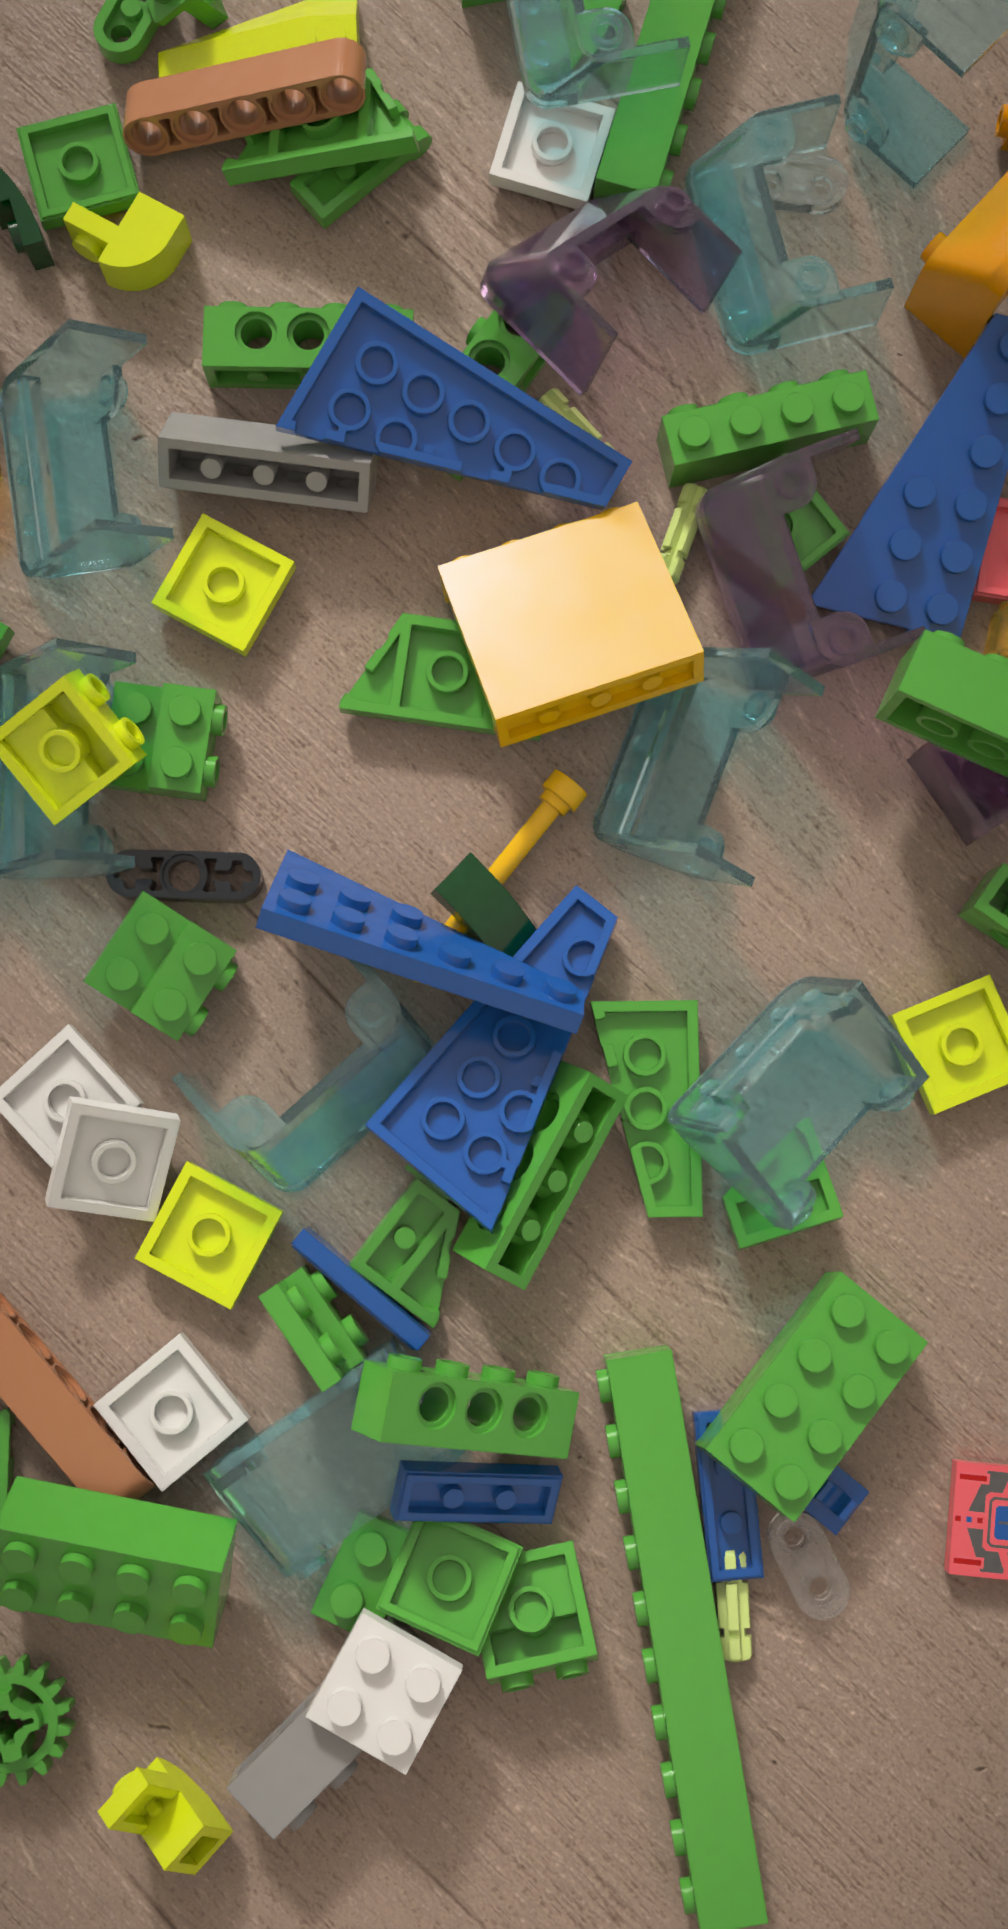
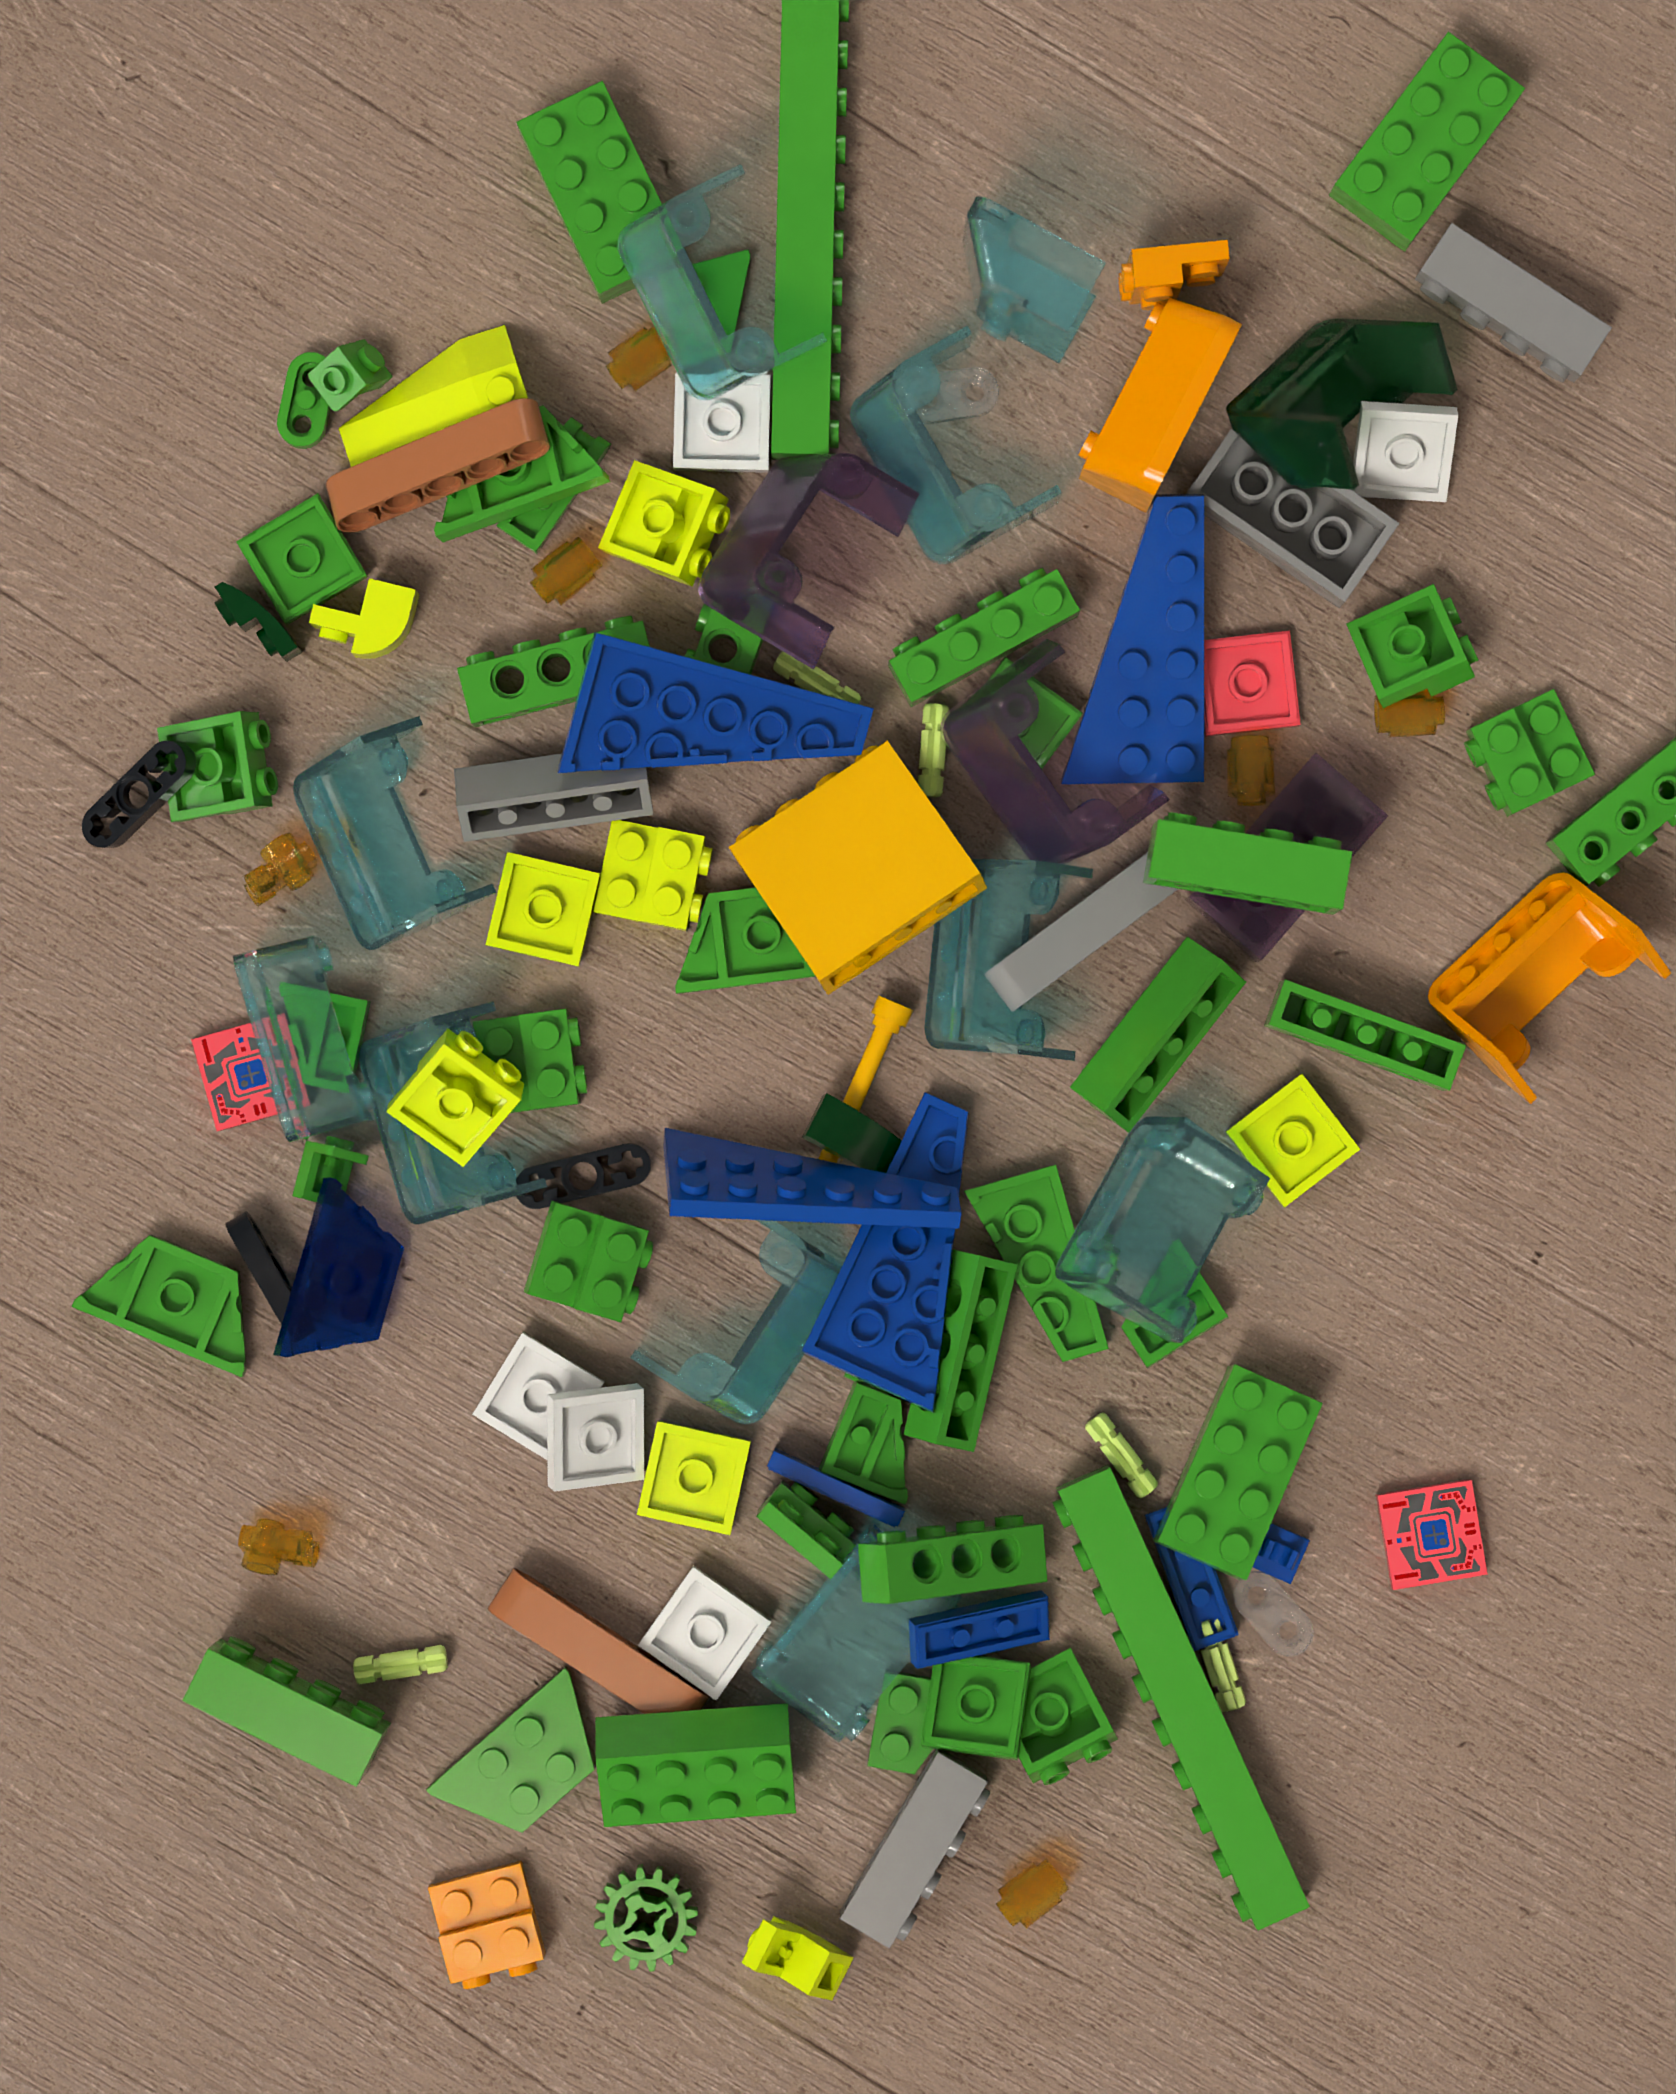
camera: 10 degrees left, 5 degrees up
(347, 249) = (564, 571): none -> clear yellow brick
(350, 582) = (652, 875): none -> neon yellow plate
(384, 1691) = (947, 1805): white plate -> none
(454, 1813) = (1031, 1893): none -> clear yellow brick
(464, 225) = (665, 523): none -> neon yellow plate
(484, 60) = (638, 359): none -> clear yellow brick
(685, 1339) = (1121, 1455): none -> yellowish green axle
(788, 760) = (1075, 935): none -> light grey beam
(846, 889) = (1154, 1033): none -> bright green brick

